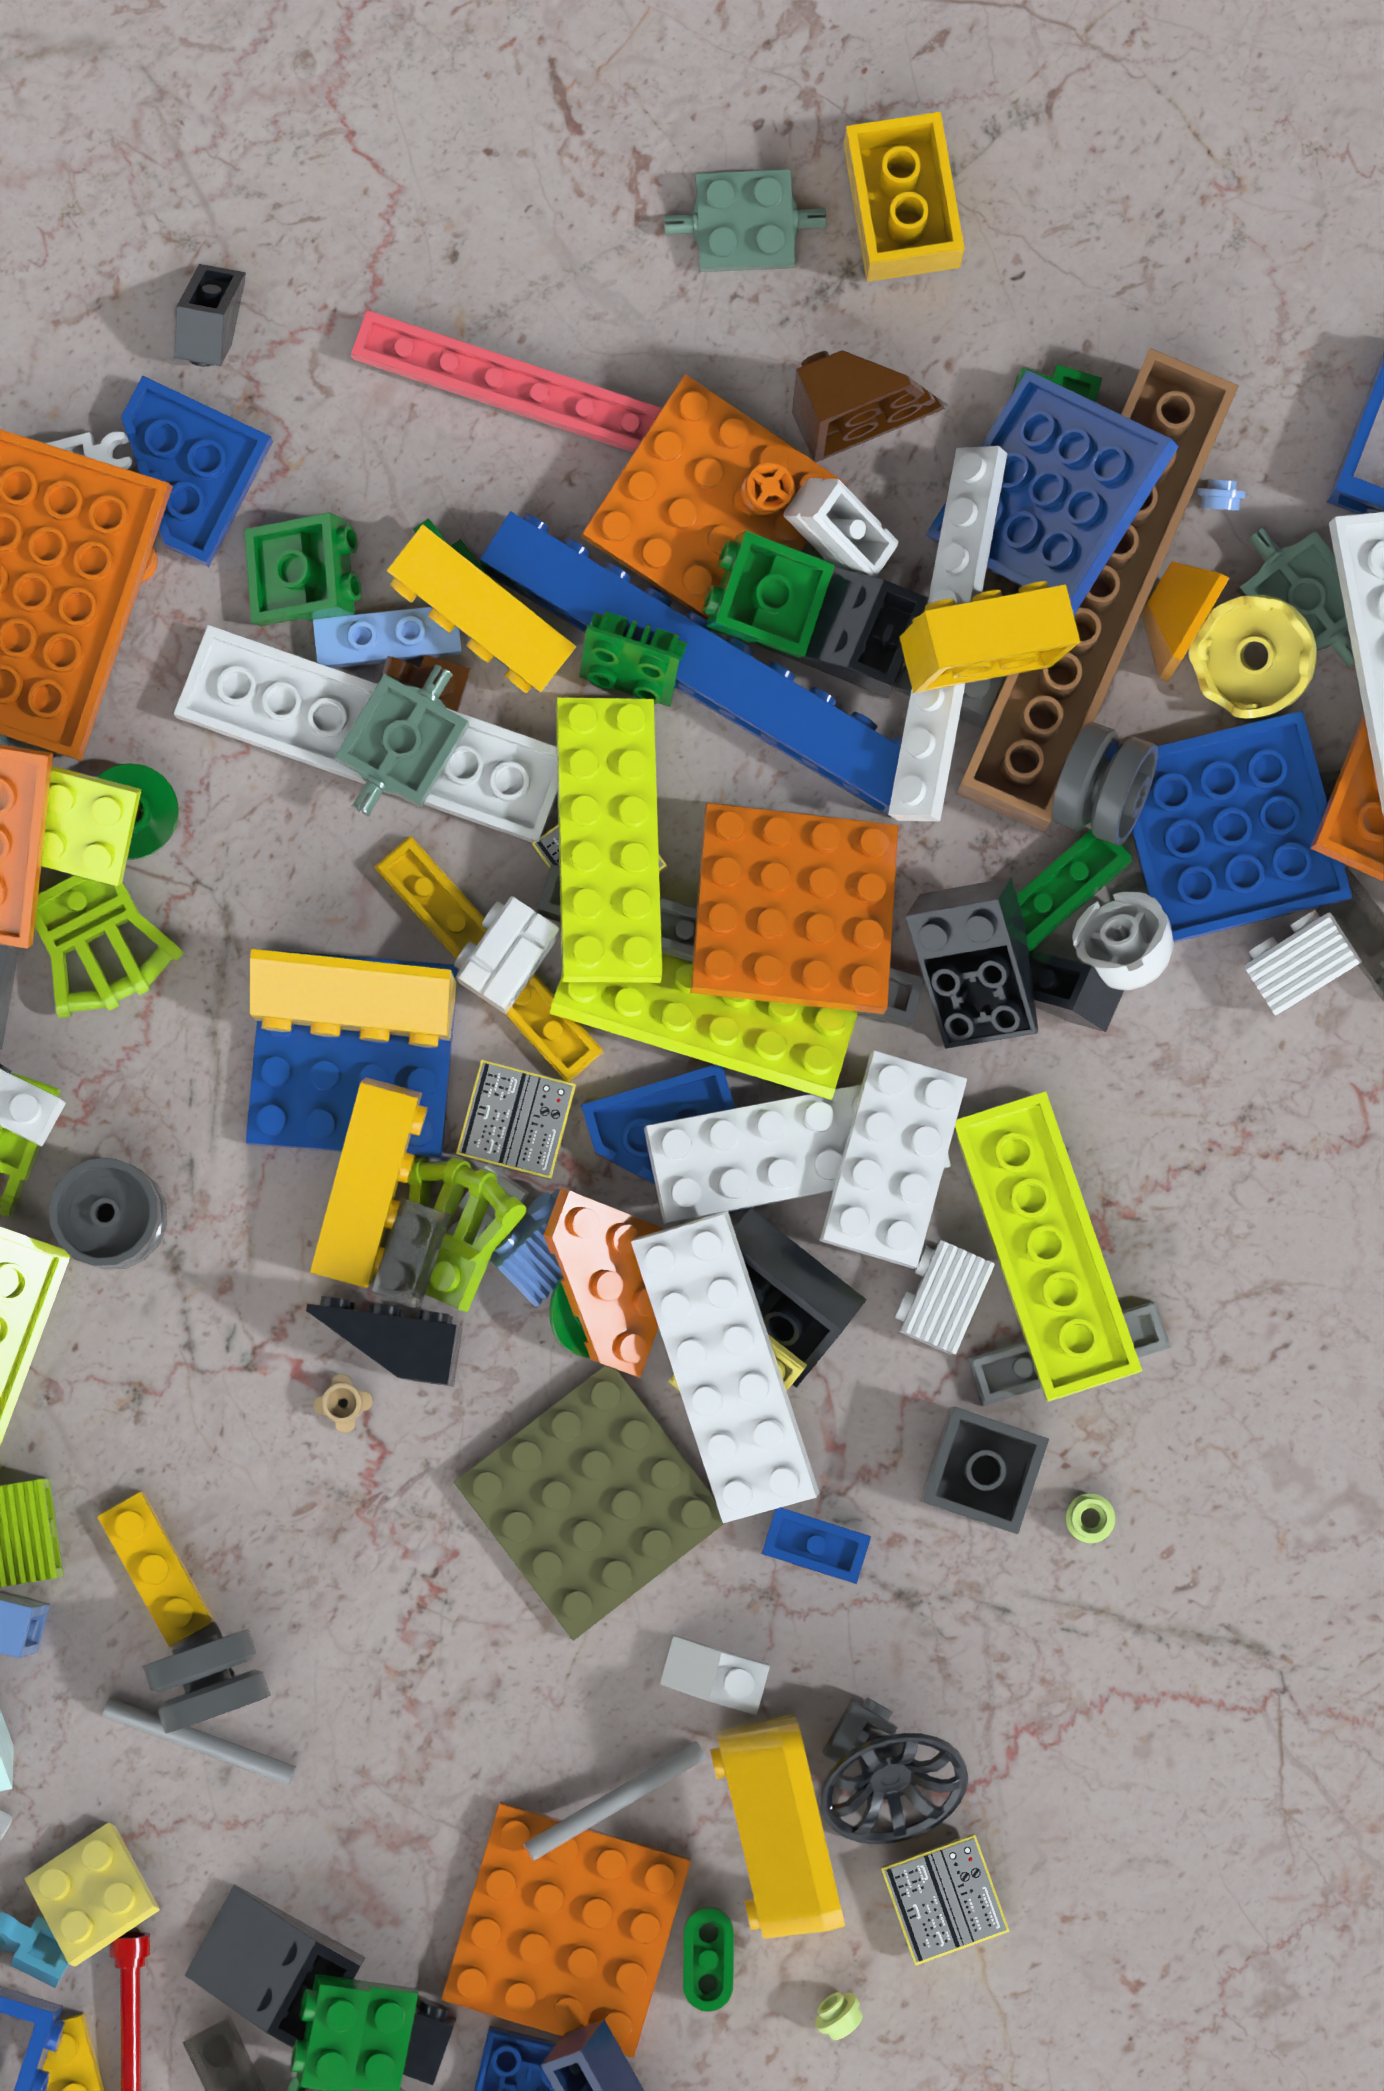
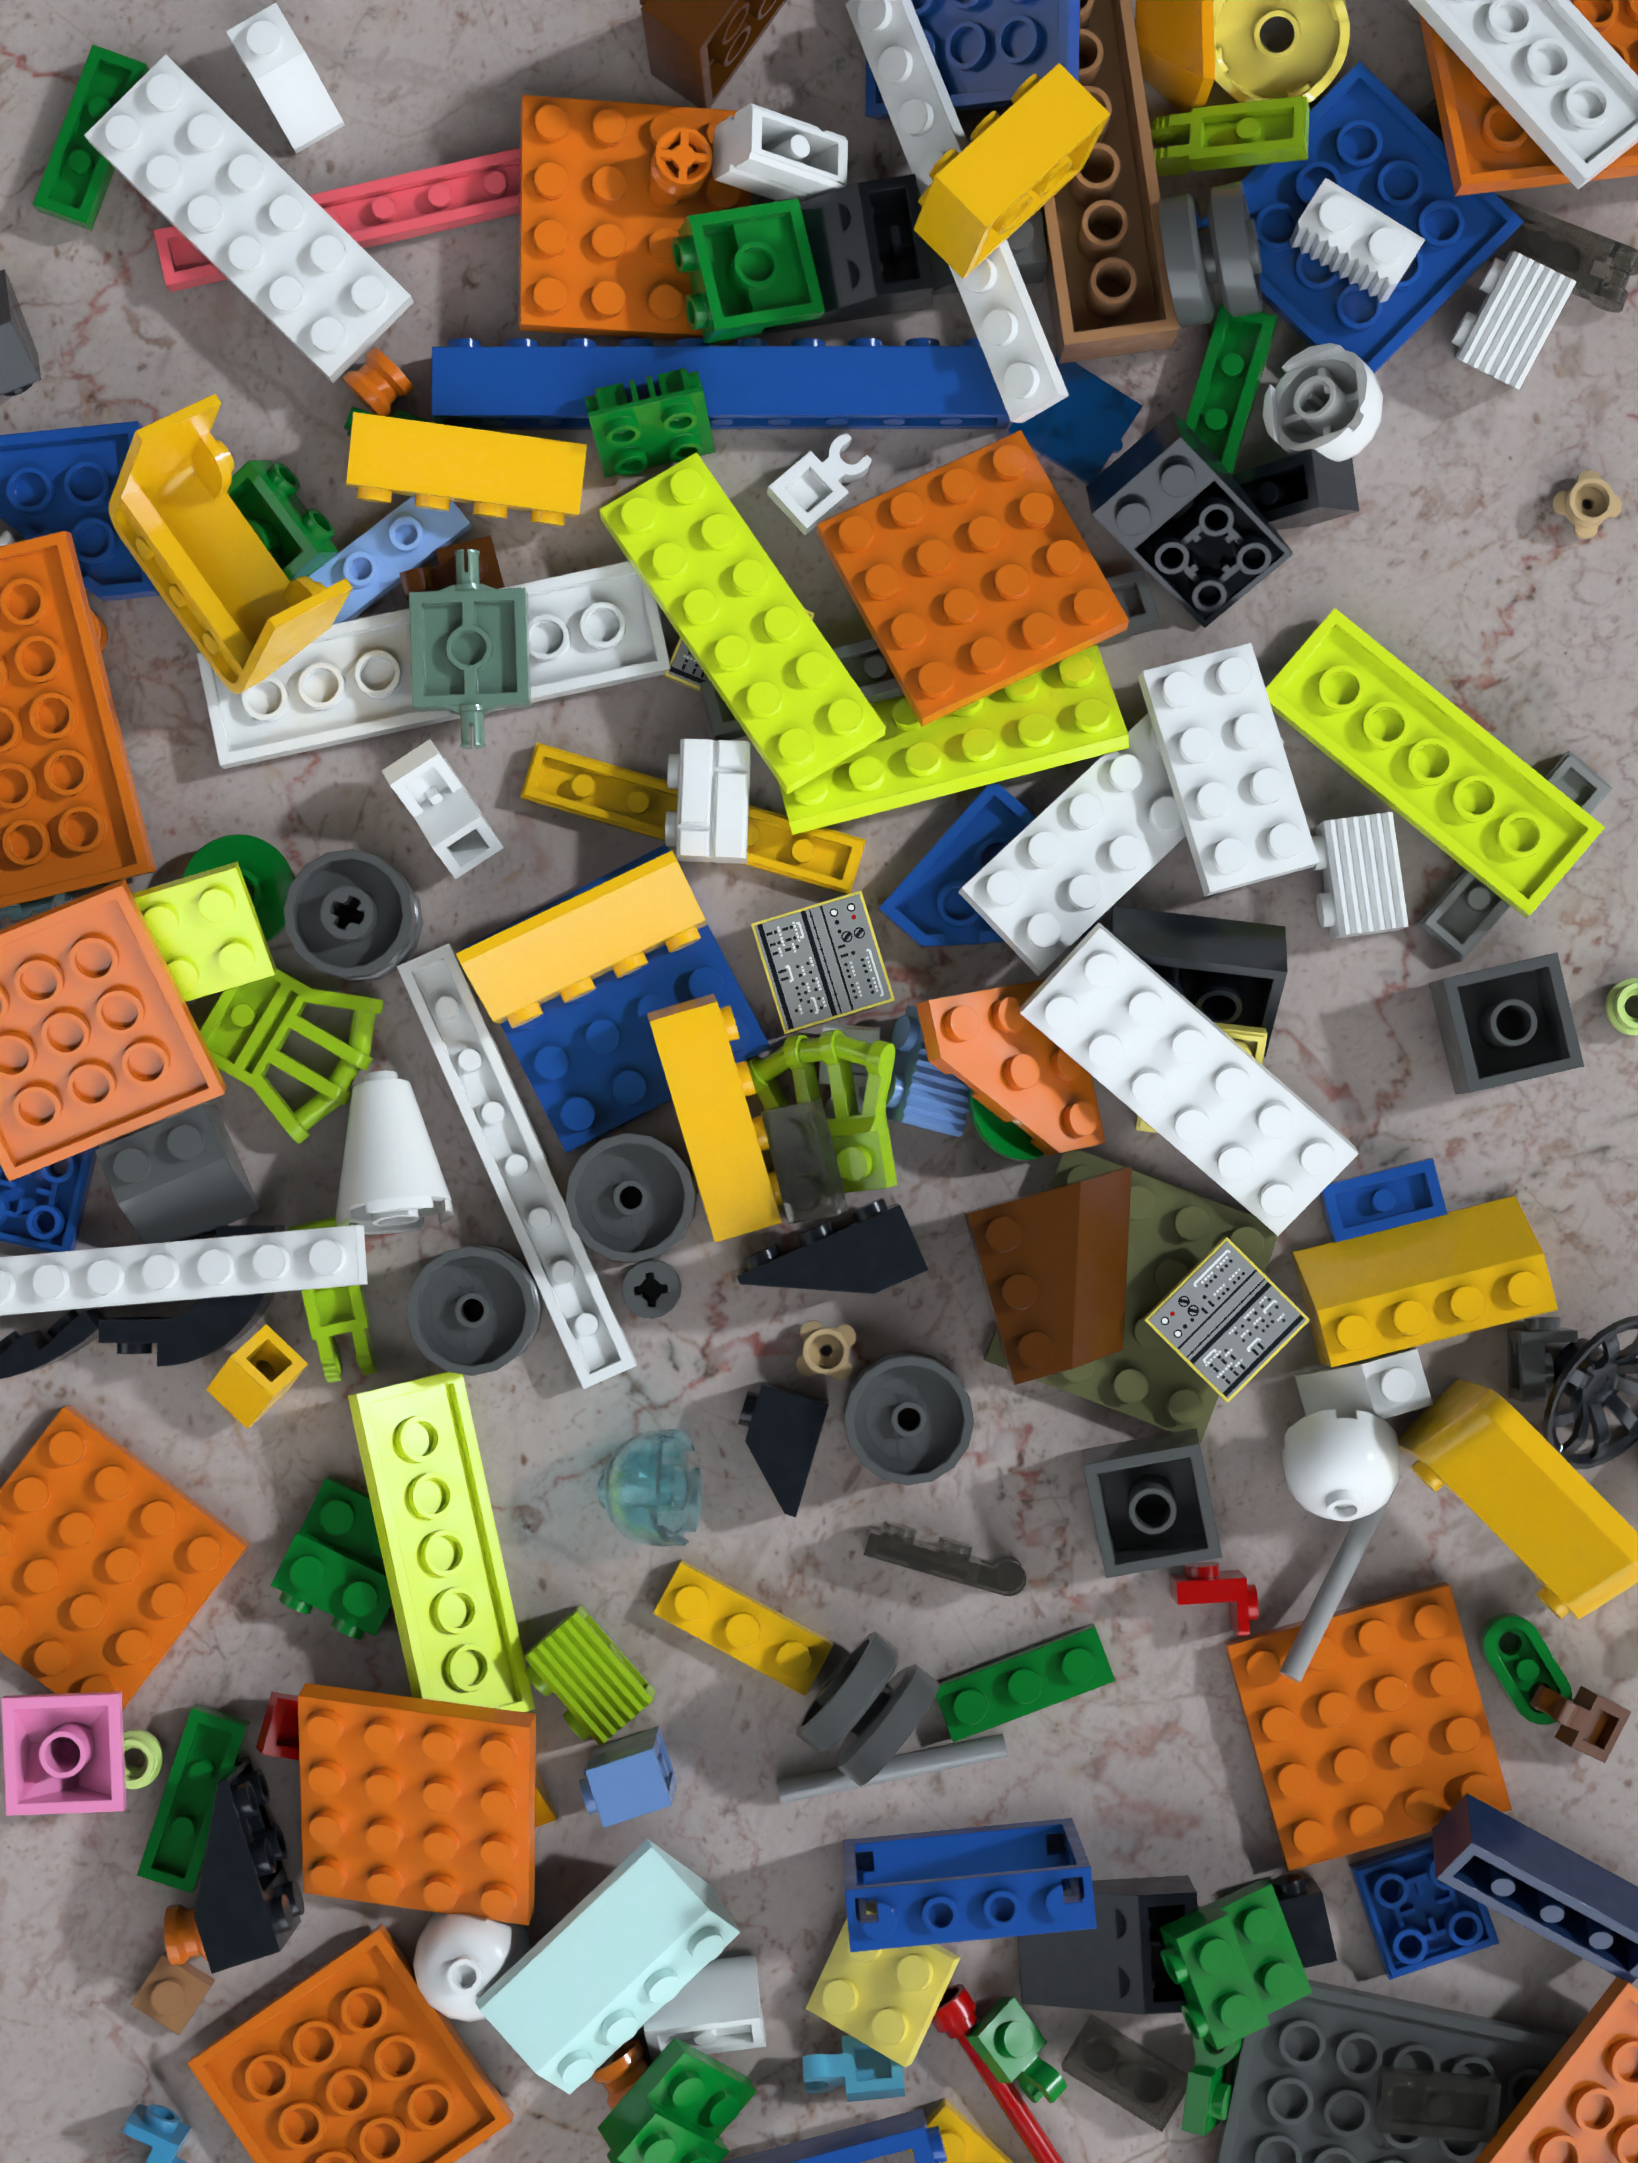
camera: 30 degrees left, 5 degrees up
(114, 1070) = (389, 1161): none -> white cone
(153, 1424) = (651, 1489): none -> clear light blue cylinder
(153, 2001) = (1009, 2048): none -> green plate
(180, 858) = (319, 911): none -> dark grey wheel
(193, 1850) = (967, 1885): none -> blue window
(204, 1133) = (517, 1165): none -> white plate
(242, 1206) = (601, 1214): none -> dark grey wheel
(253, 1283) = (660, 1288): none -> dark grey wheel
(258, 562) = (206, 555): none -> yellow windscreen
(271, 1448) = (783, 1438): none -> black slope
(312, 841) = (442, 808): none -> white brick
(334, 1611) = (947, 1559): none -> clear smoke plate
(334, 1738) = (1024, 1682): none -> green plate
(347, 1507) = (886, 1445): none -> dark grey wheel
(365, 219) = (76, 171): none -> green plate
(439, 343) = (249, 218): none -> white plate
(457, 512) = (378, 382): none -> orange wheel
(507, 1660) = (1151, 1503): none -> dark grey brick
(512, 1747) = (1206, 1584): none -> red bracket
(527, 260) = (285, 77): none -> white slope
(542, 1447) = (1056, 1273): none -> reddish brown wedge
(644, 1558) = (1226, 1319): none -> light grey tile
(663, 1717) = (1341, 1464): none -> white cylinder
(722, 777) = (814, 488): none -> white plate
(729, 2026) = (1587, 1722): none -> reddish brown plate
(809, 1622) = (1423, 1282): none -> yellow slope
(946, 849) = (1084, 426): none -> clear blue piece
(1177, 708) = (1232, 136): none -> lime hinge
(1218, 836) = (1355, 240): none -> white brick
(1291, 1137) = (1599, 492): none -> tan plate

